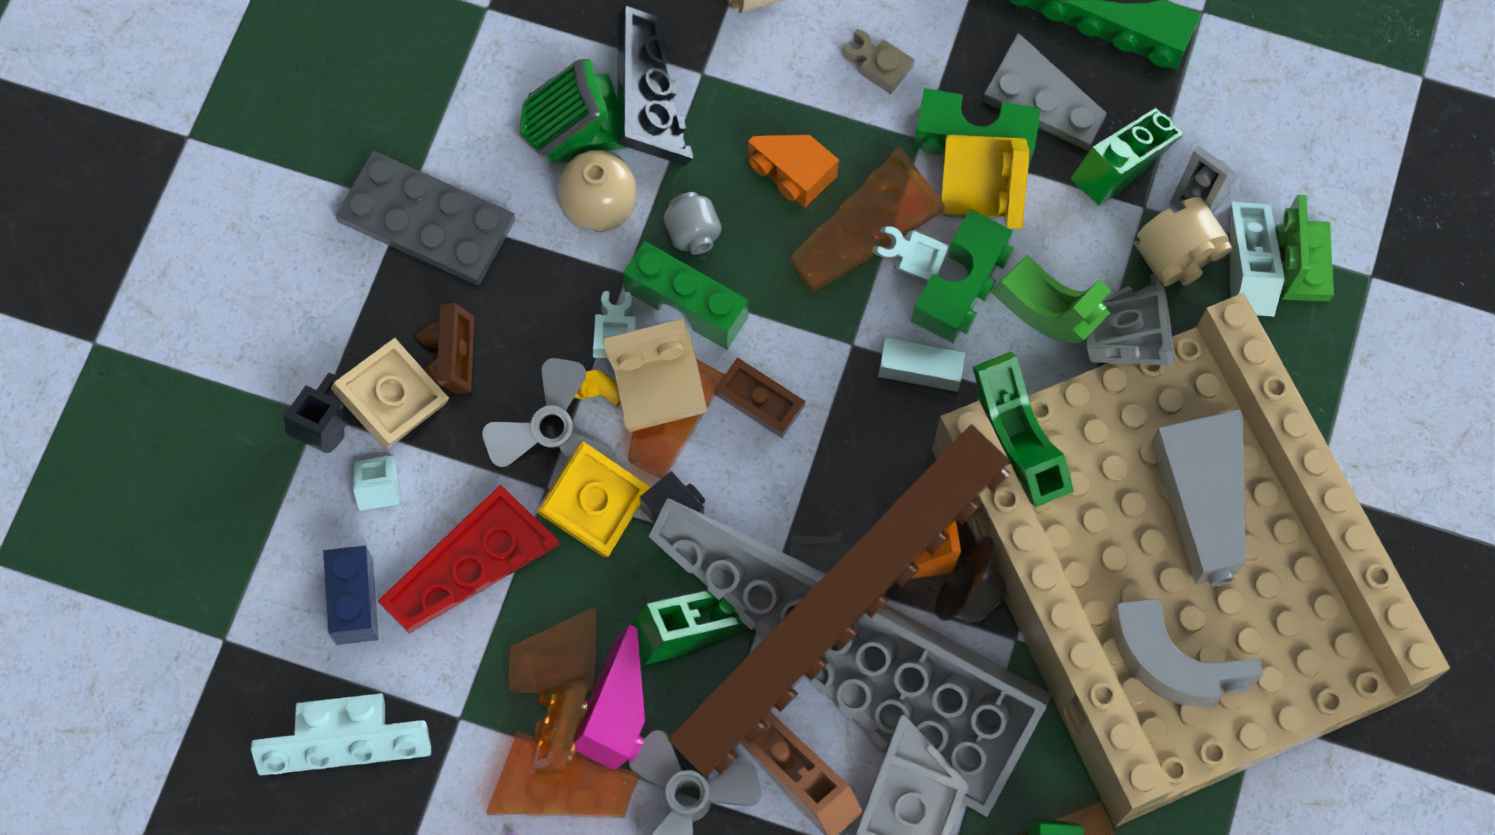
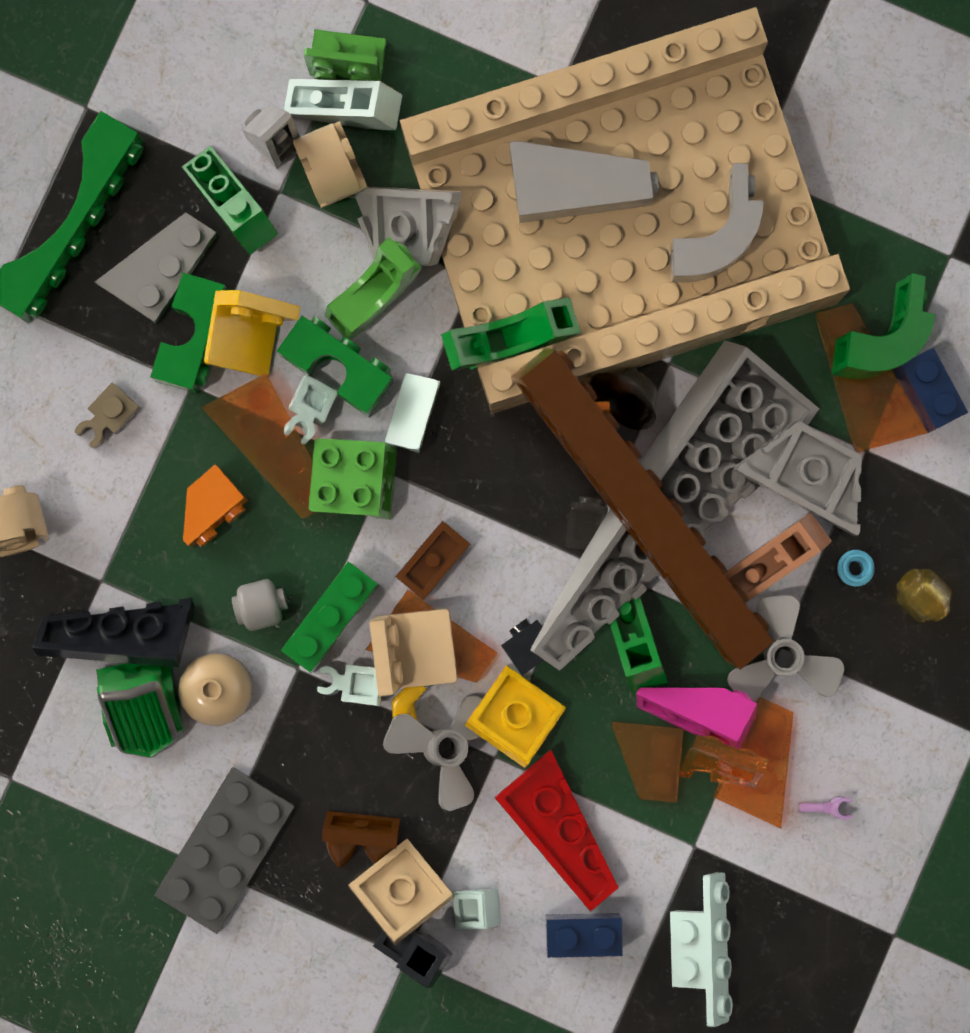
camera: 80 degrees left, 15 degrees up
(841, 306) = (353, 478): none -> bright green bracket

